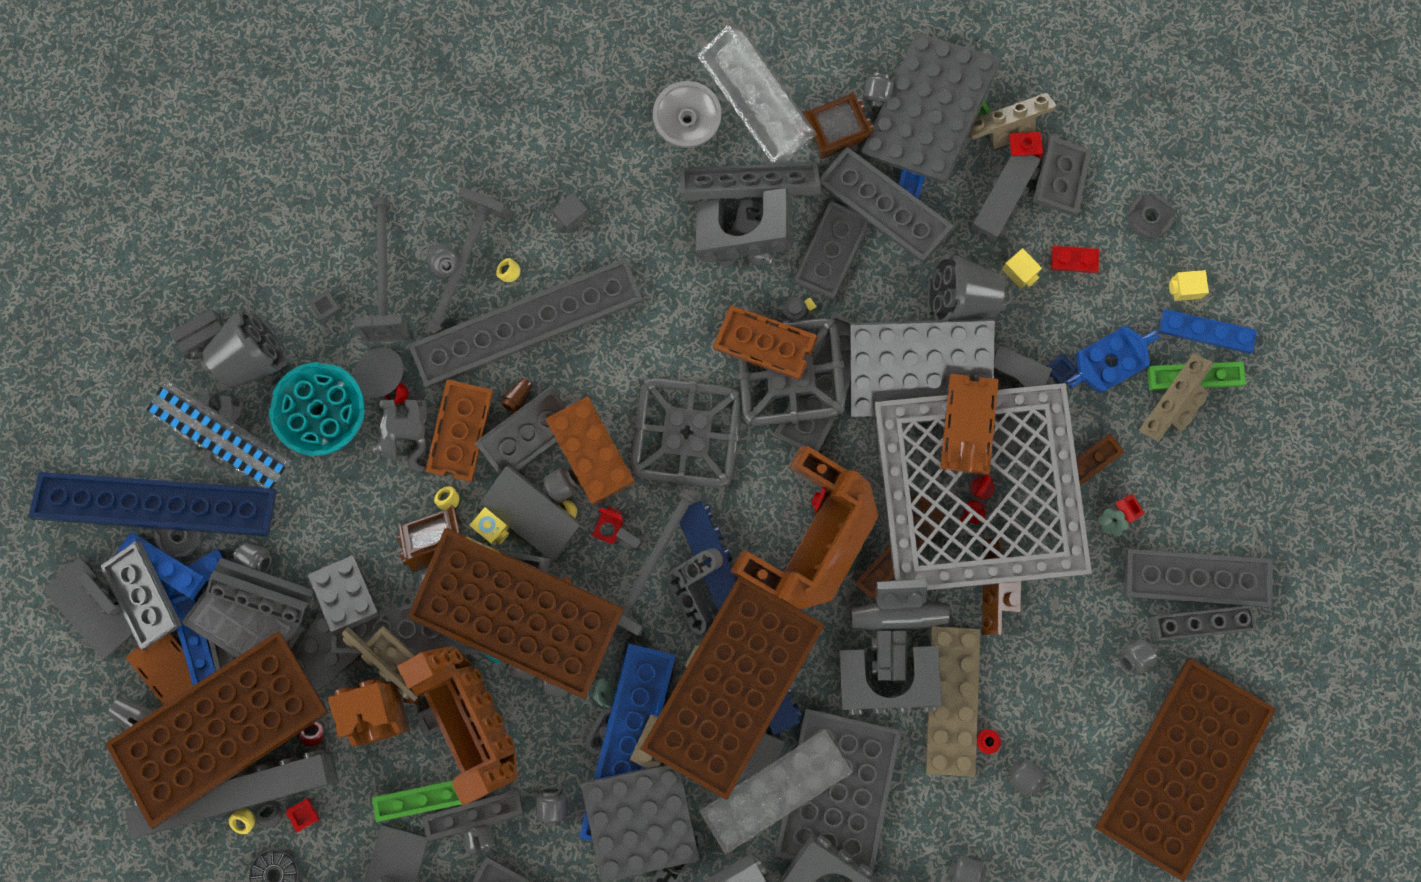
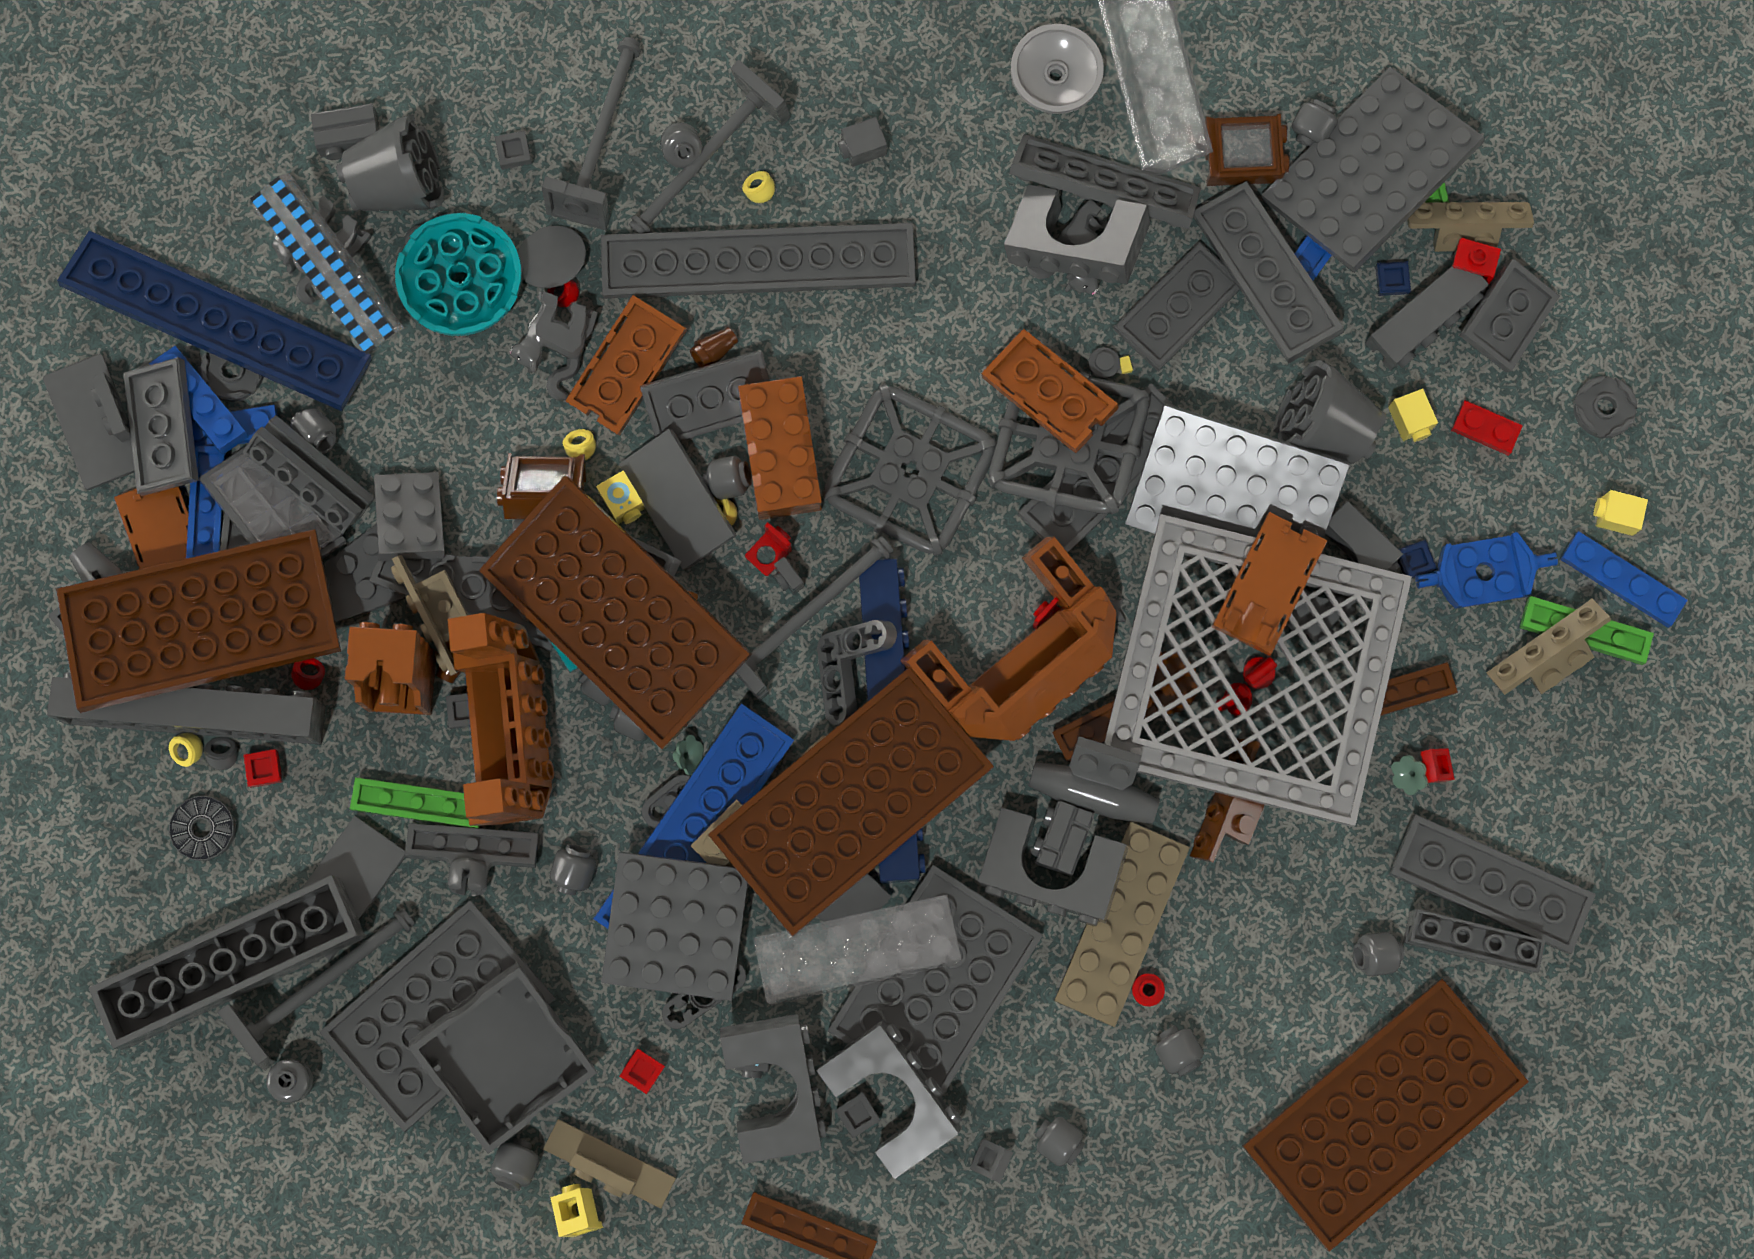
camera: 15 degrees right, 0 degrees up
(972, 178) = (1393, 278): none -> dark blue tile

